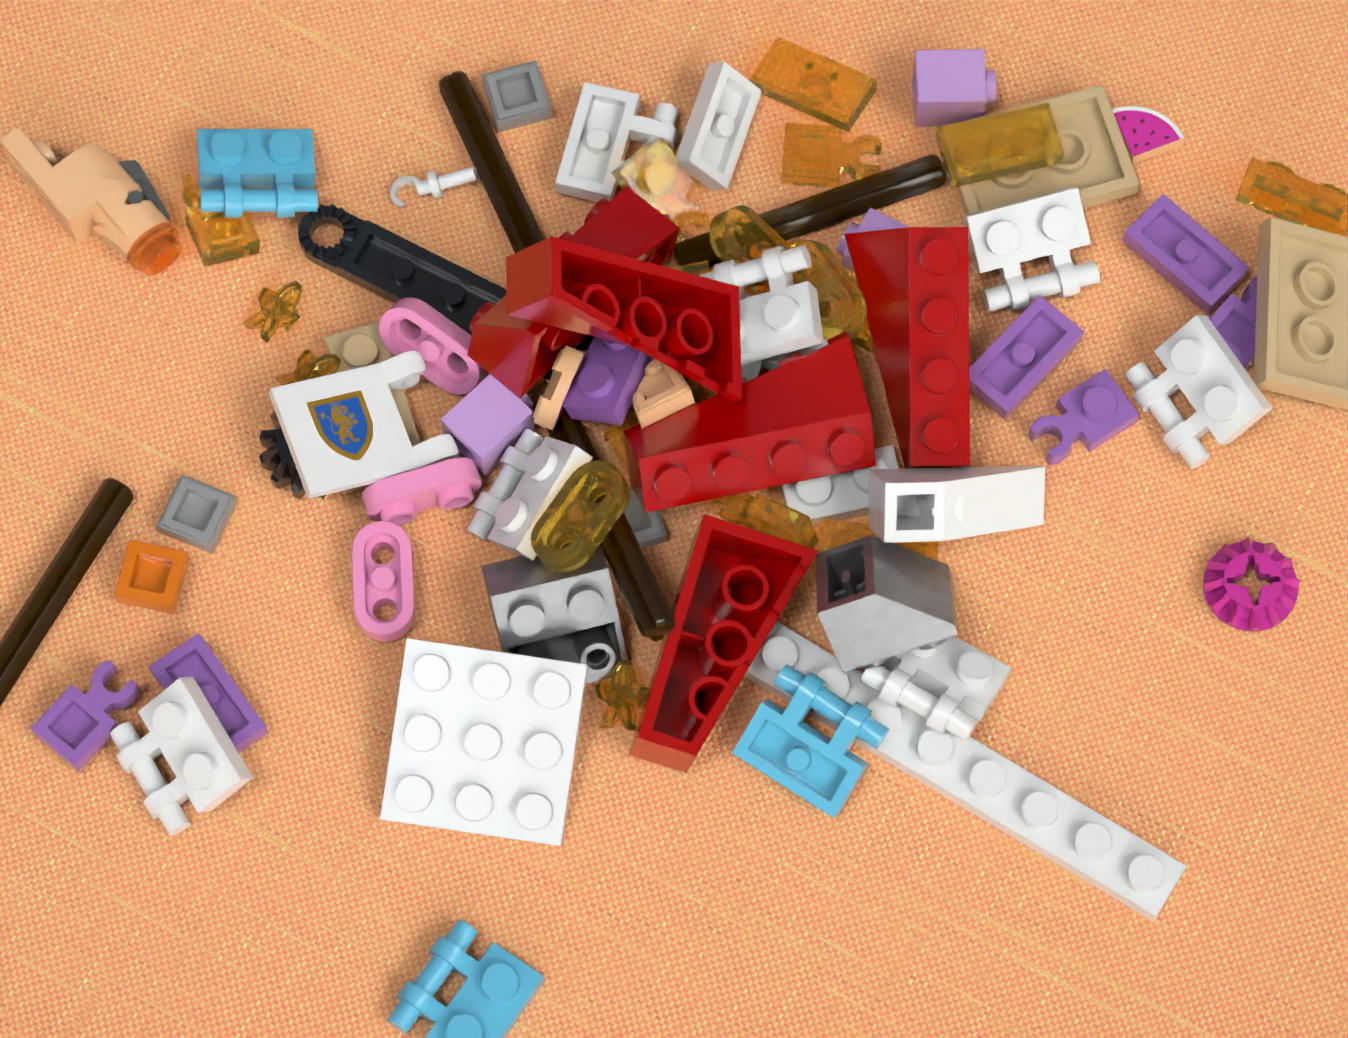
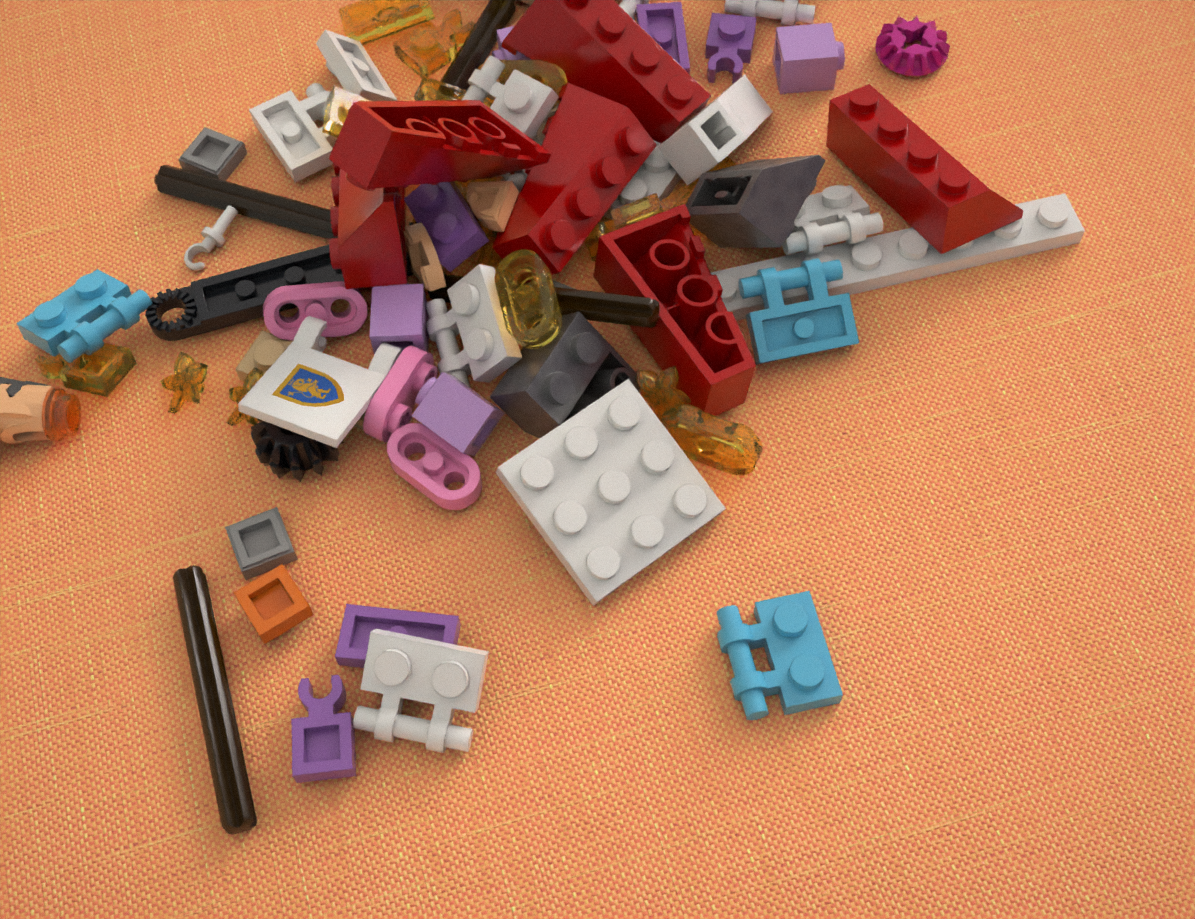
camera: 45 degrees left, 10 degrees down
(439, 555) = (456, 413): none -> lavender brick
(605, 755) = (712, 439): none -> clear yellow plate
(1061, 740) = (913, 171): none -> red wedge
(1127, 504) = (807, 58): none -> lavender brick

